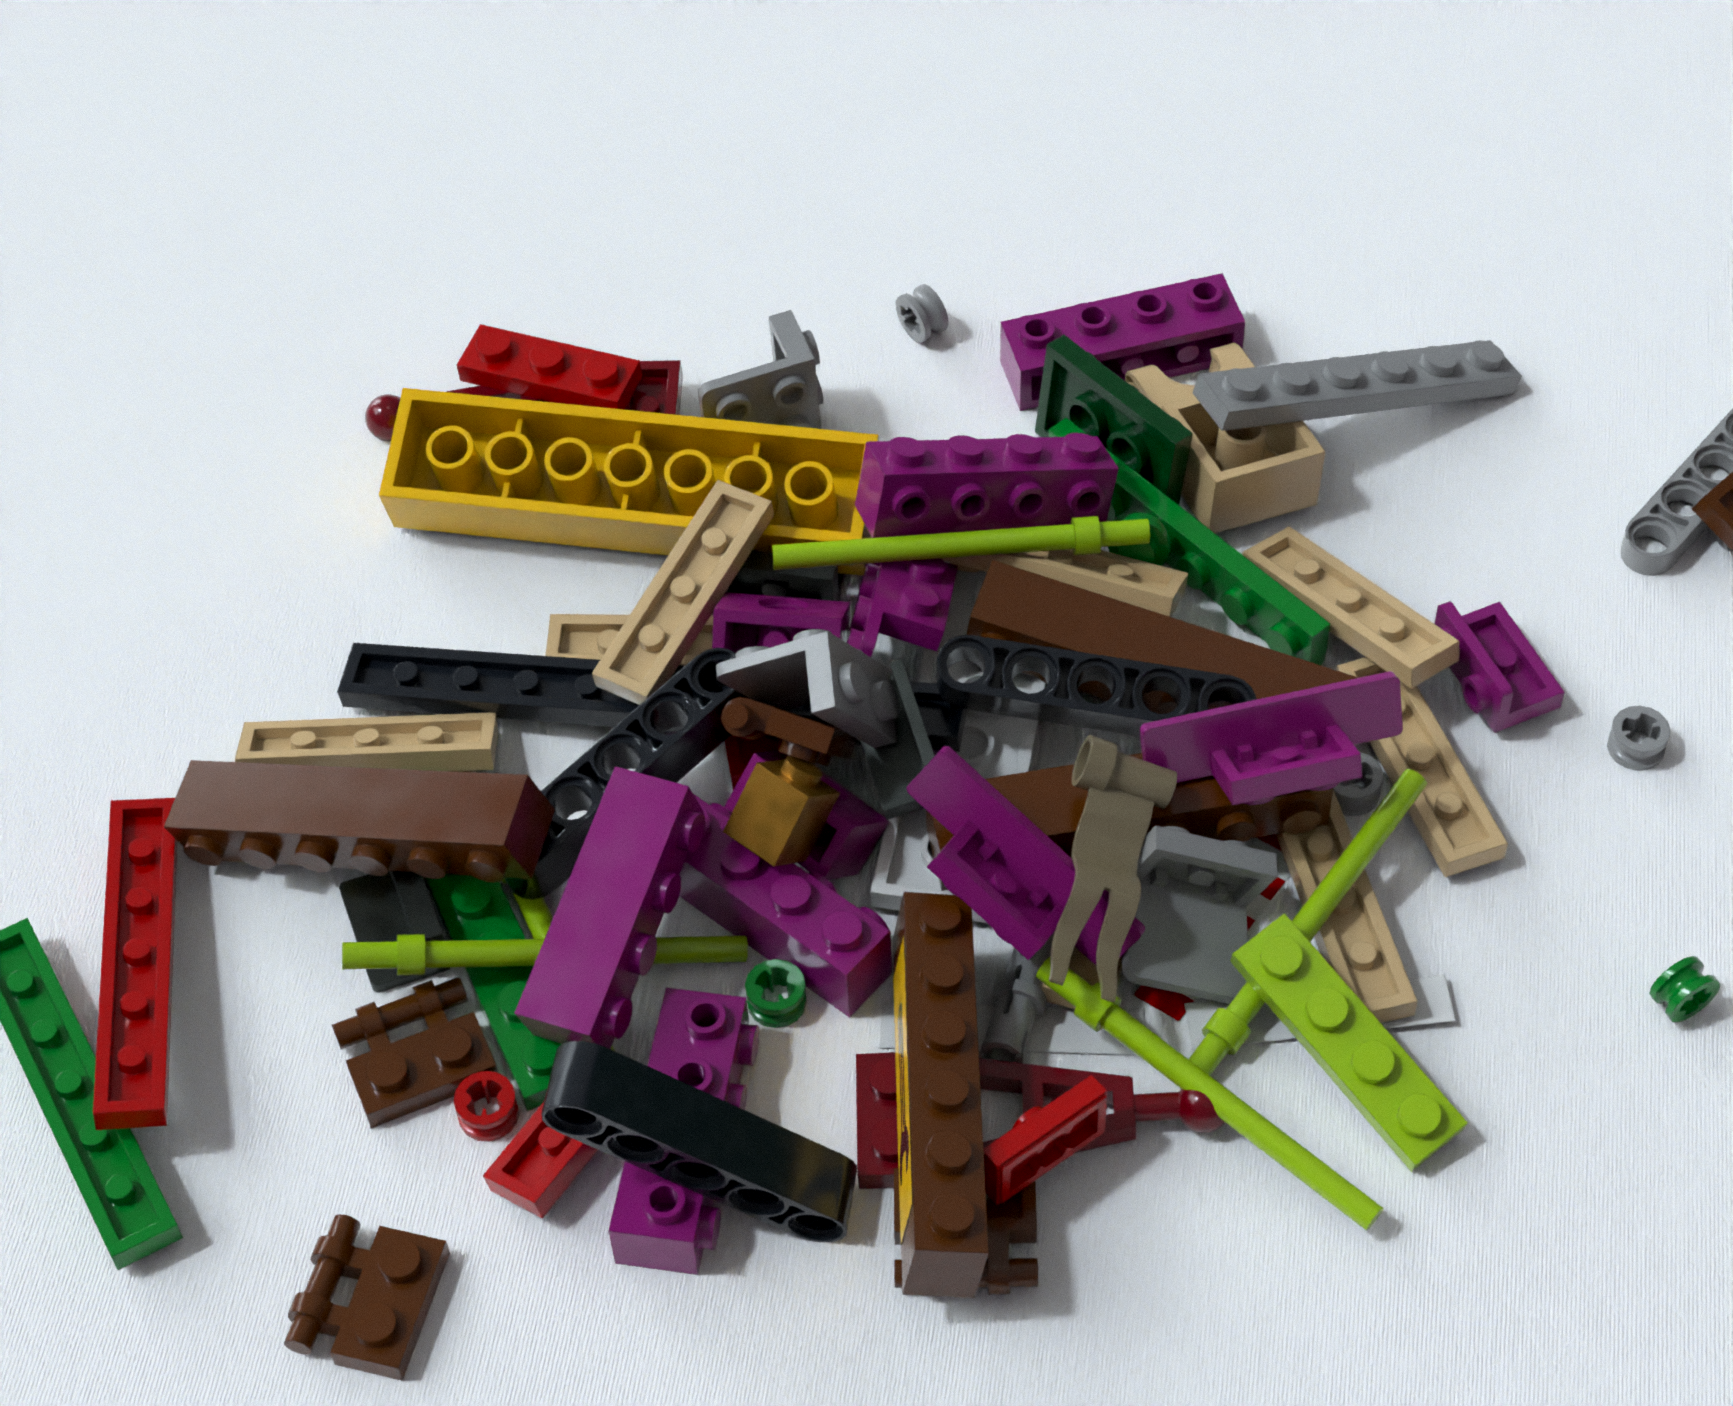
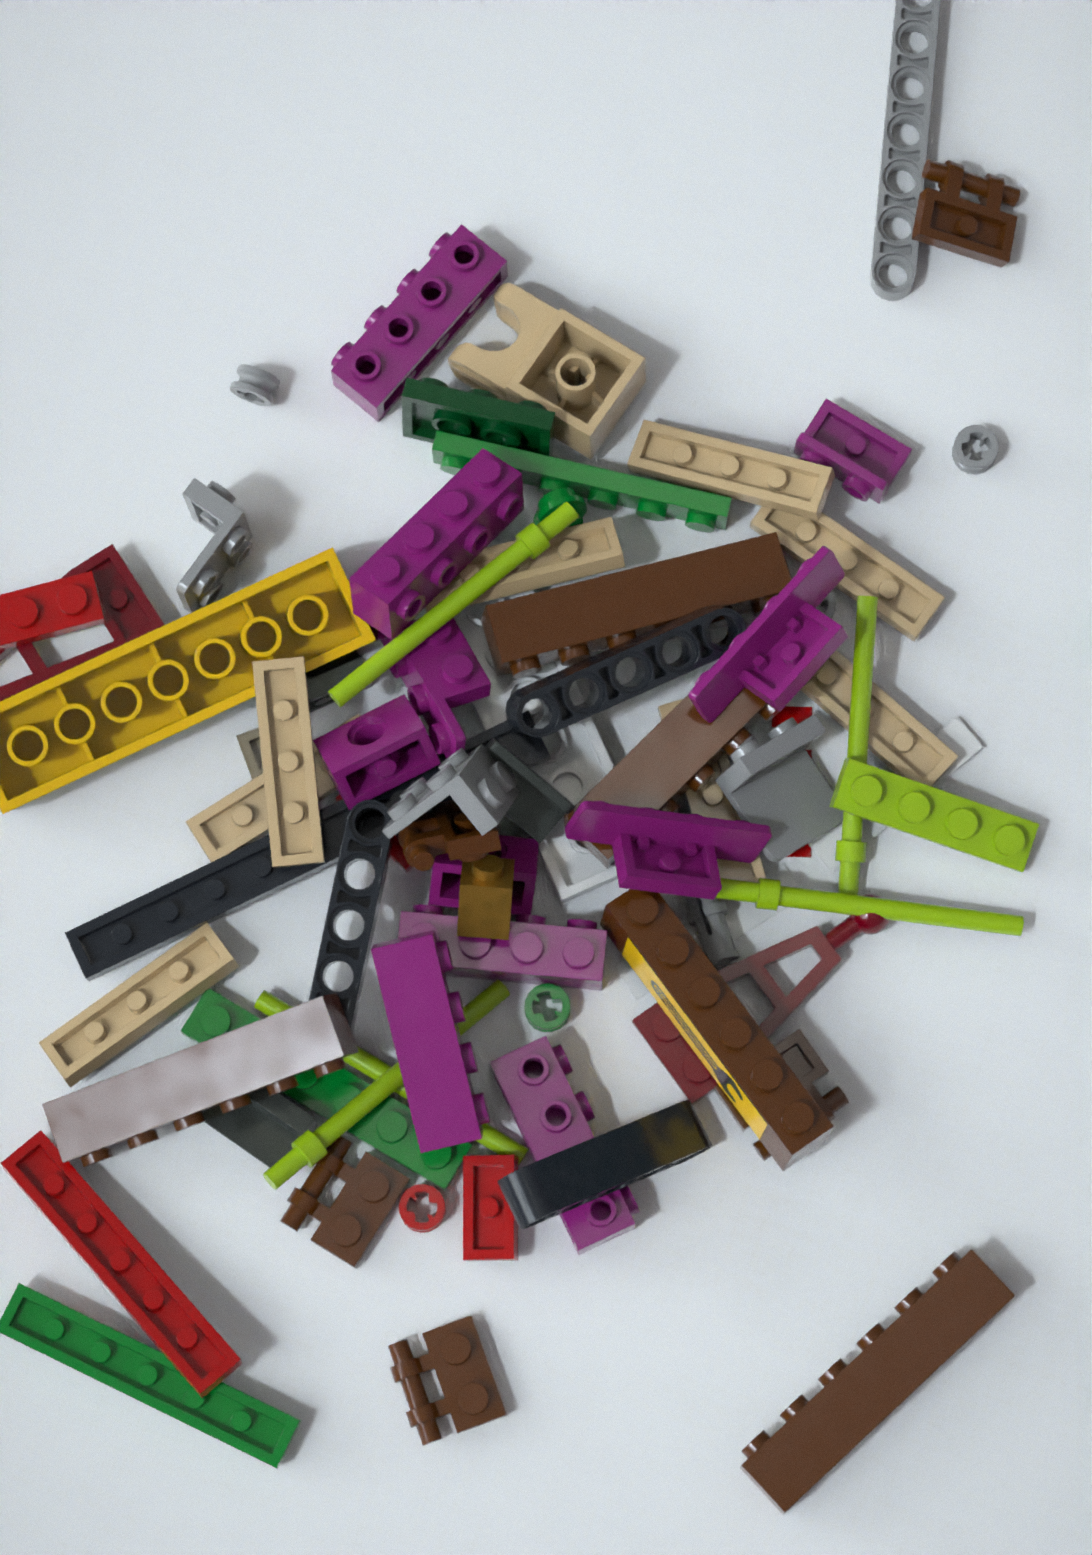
camera: 35 degrees left, 25 degrees up
(1044, 1139) = (799, 1012): red plate -> none
(1108, 851) = (717, 796): dark tan flag -> none
(1355, 384) = (624, 274): light grey plate -> none

